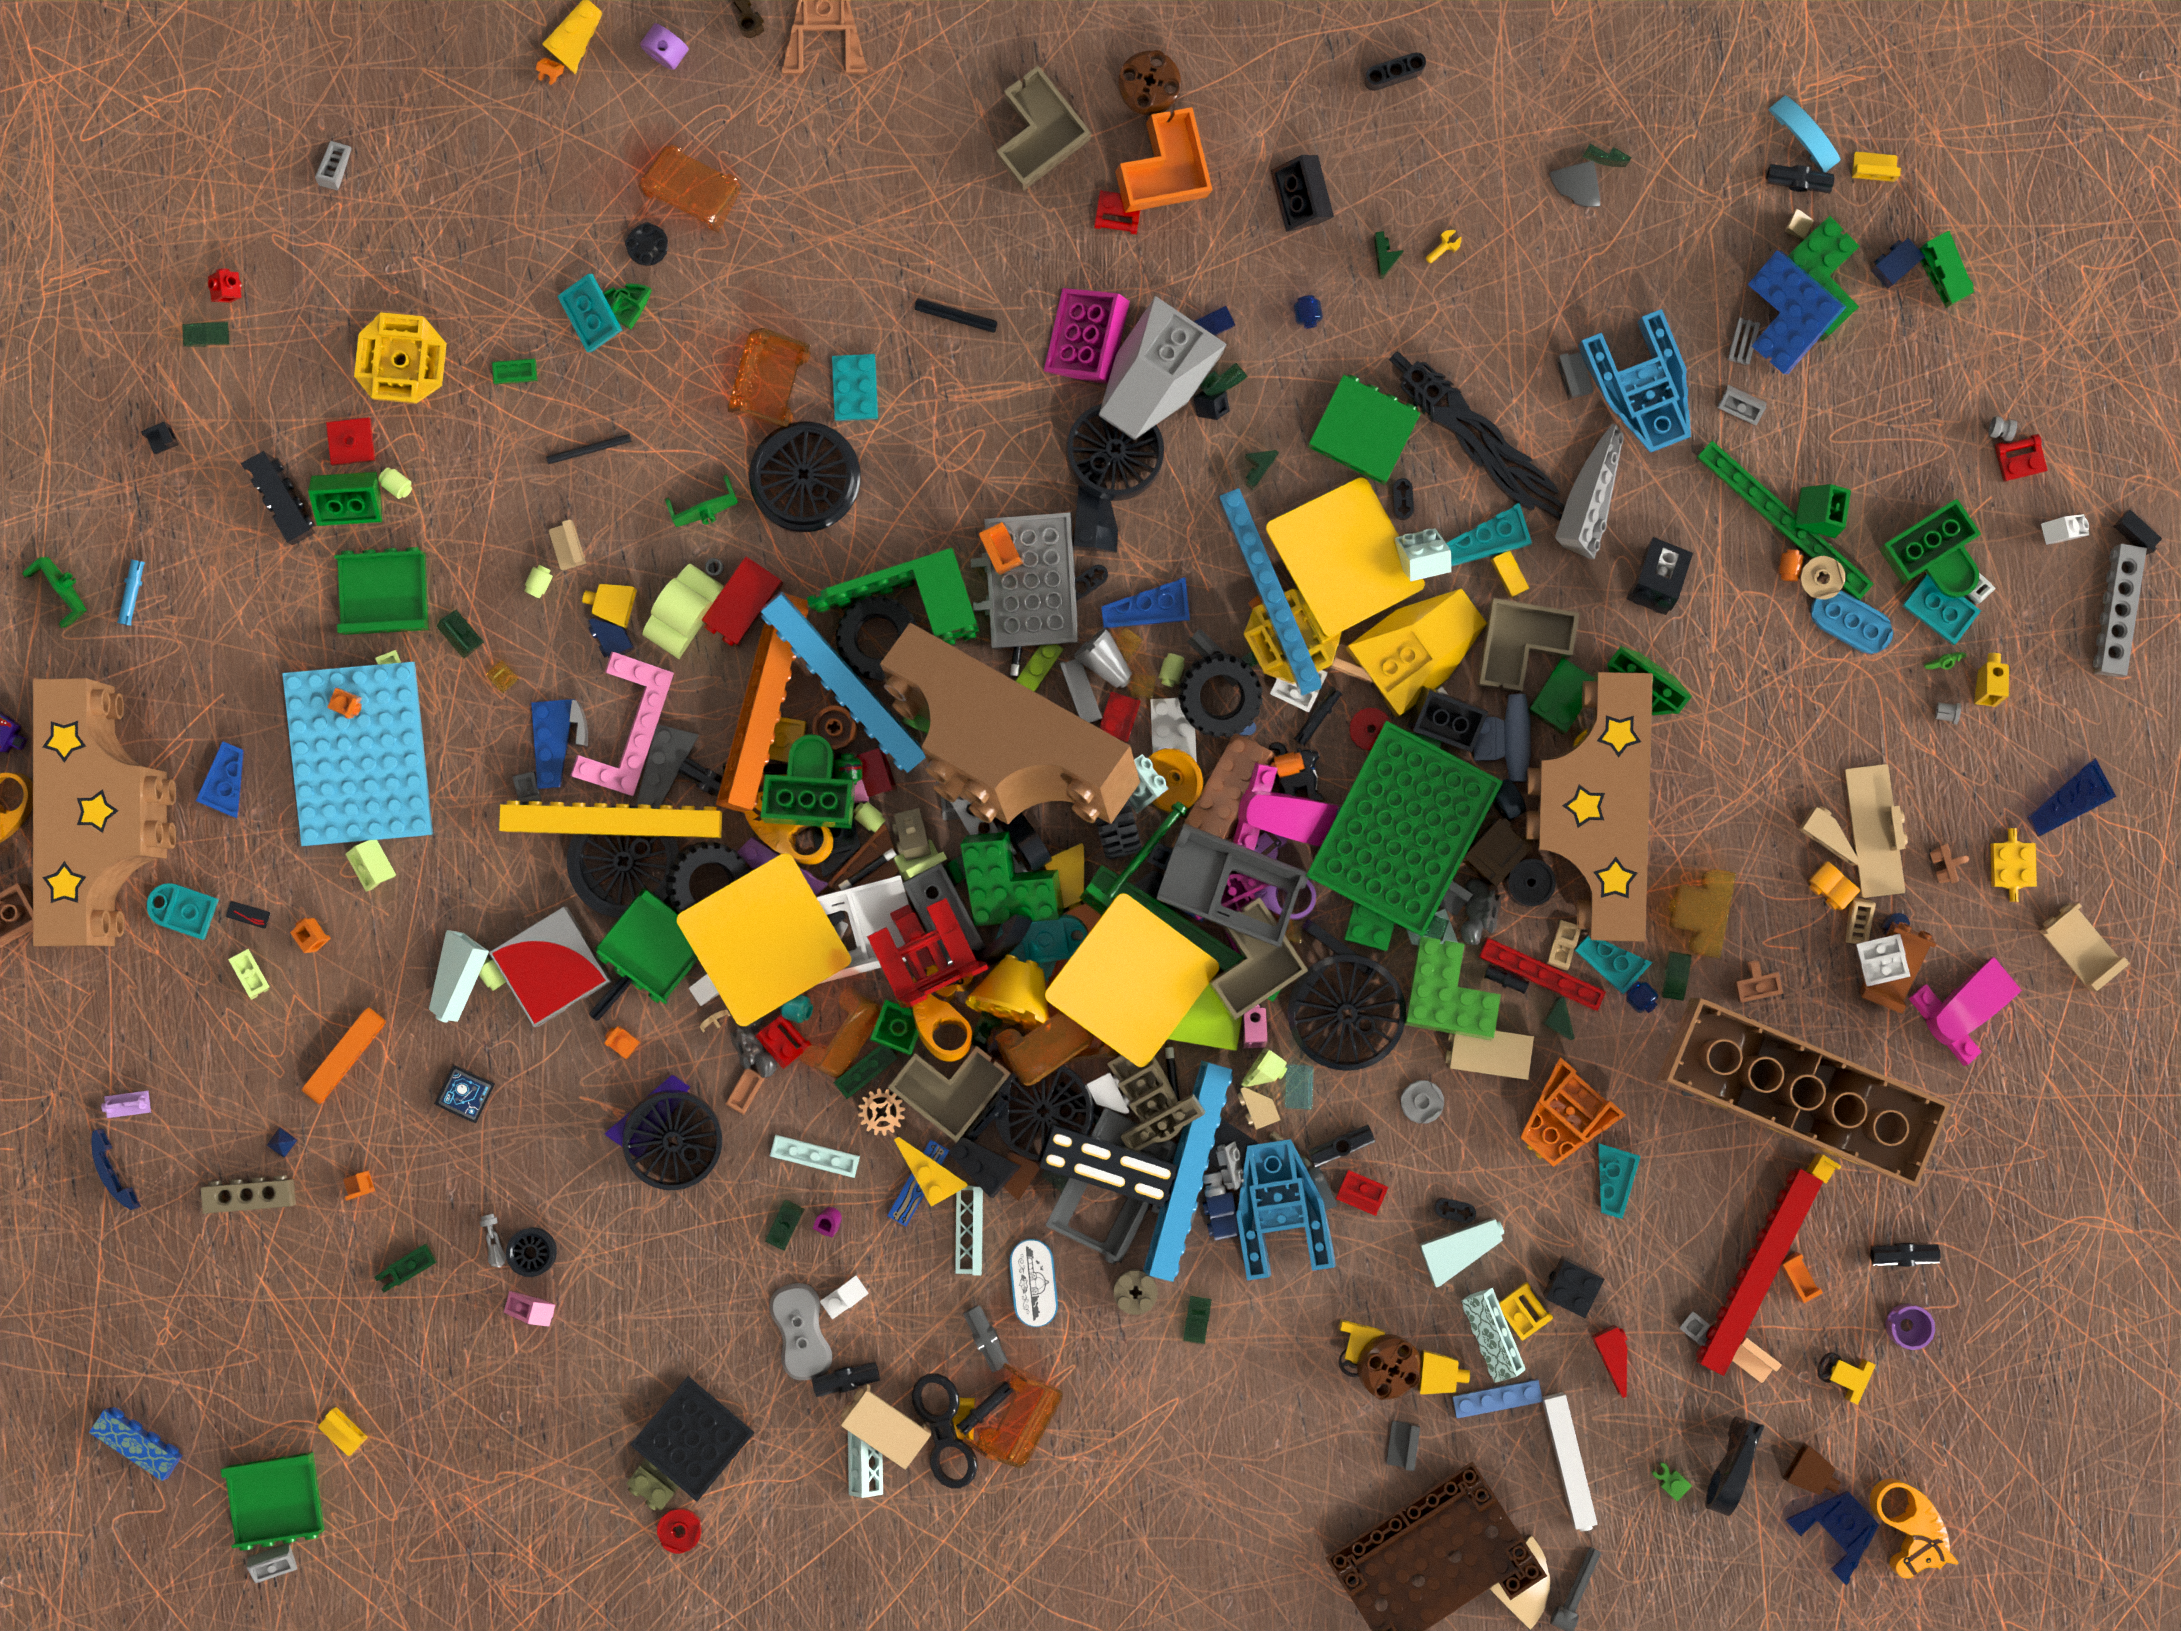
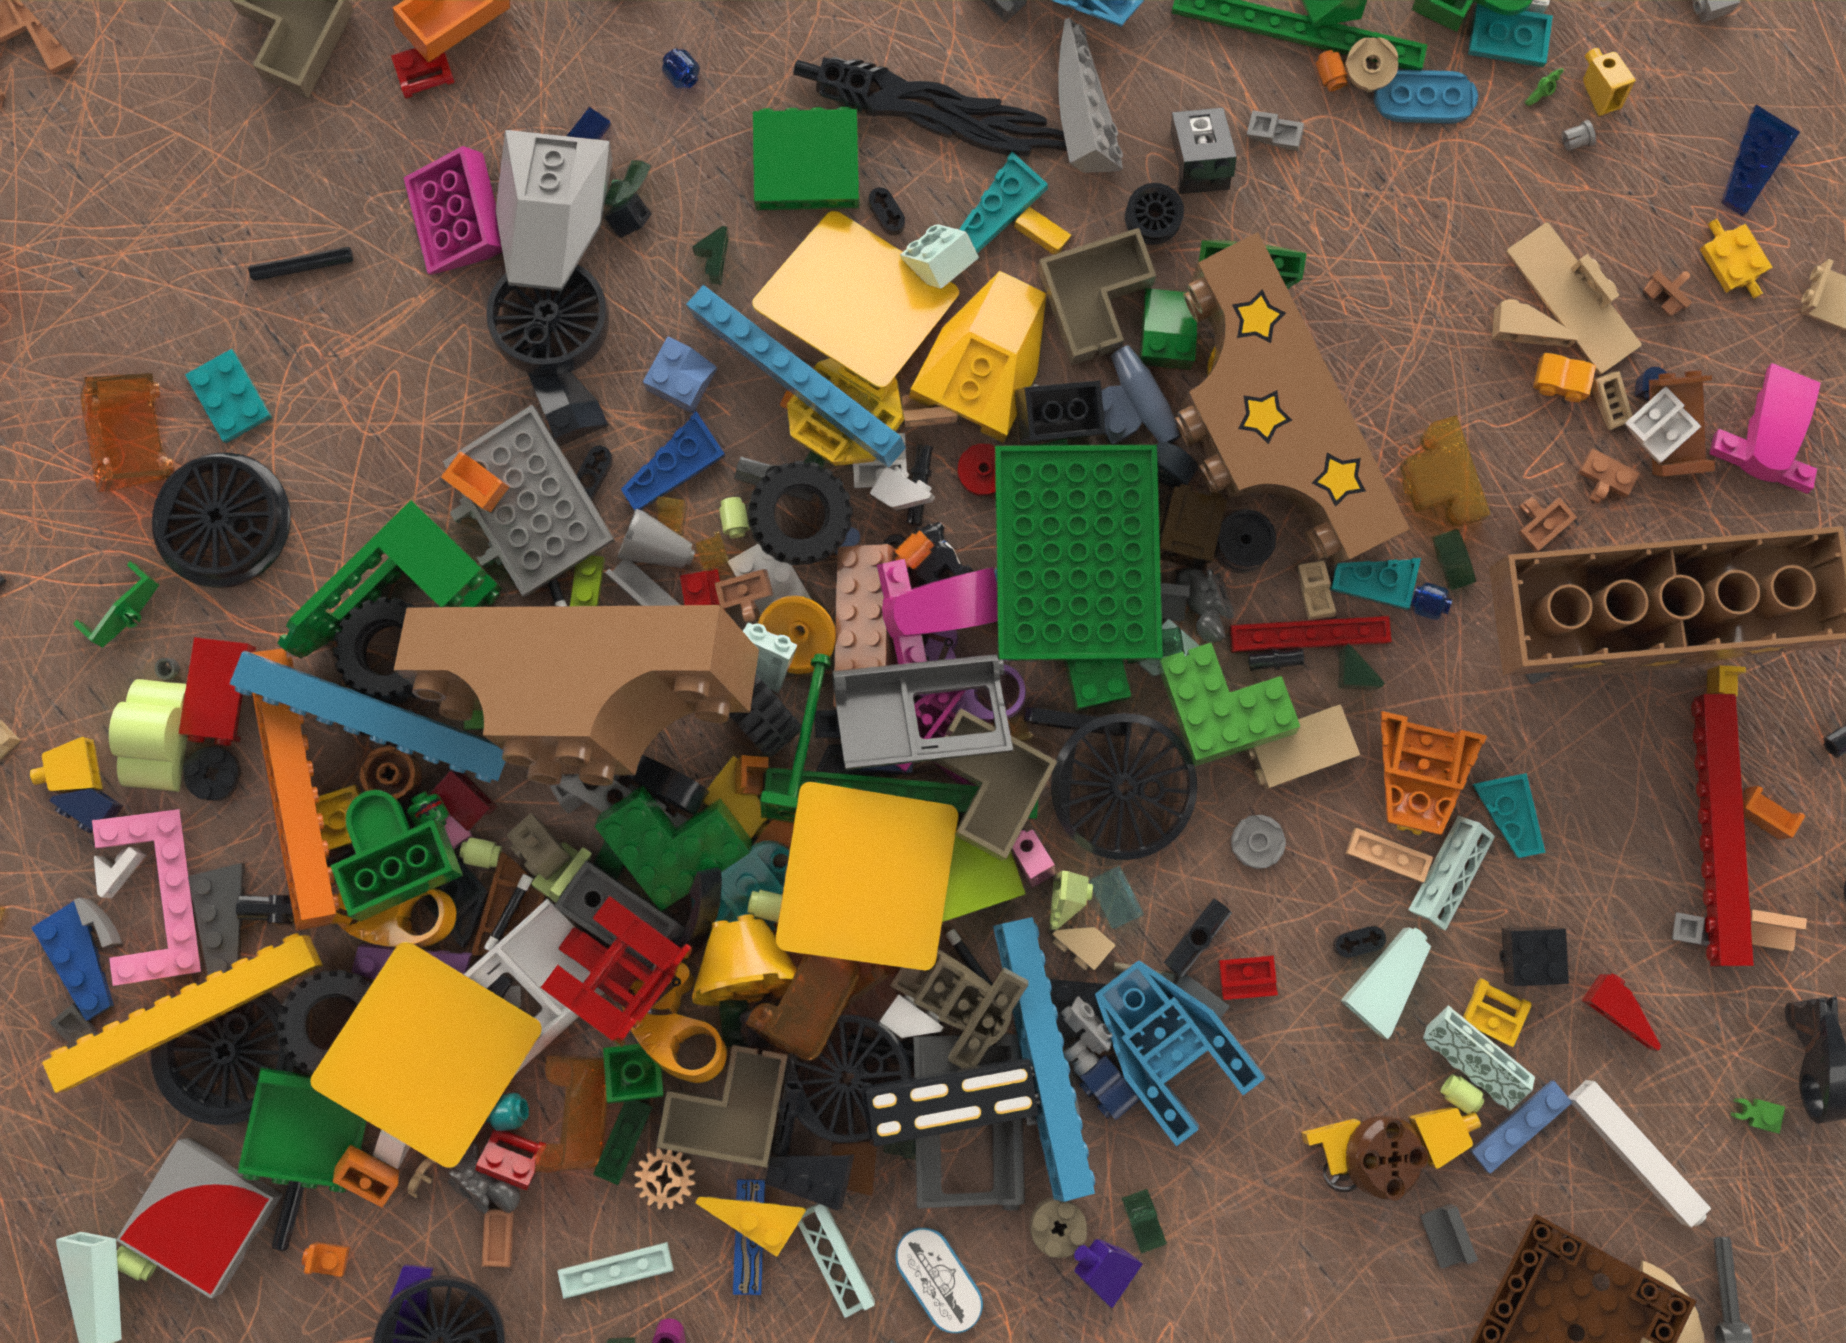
camera: 30 degrees left, 5 degrees down
(604, 697) = (112, 876): none -> white slope
(678, 1000) = (366, 1176): none -> orange brick
(700, 668) = (197, 767): none -> black plate
(1050, 961) = (765, 905): none -> yellowish green brick
(1086, 863) = (749, 774): none -> orange panel
(1151, 729) = (744, 591): none -> nougat plate
(1152, 1337) = (1106, 1269): none -> dark purple torso
(1187, 544) = (679, 375): none -> medium blue slope
(1299, 714) = (899, 492): none -> white slope
(1468, 1354) = (1462, 1094): none -> yellowish green brick
(1510, 1161) = (1389, 855): none -> light nougat plate
(1547, 1194) = (1450, 869): none -> light aqua fence
(1612, 591) = (1170, 198): none -> black wheel
(1724, 589) = (1275, 131): none -> light grey slope
(1825, 974) = (1608, 475): none -> nougat plate

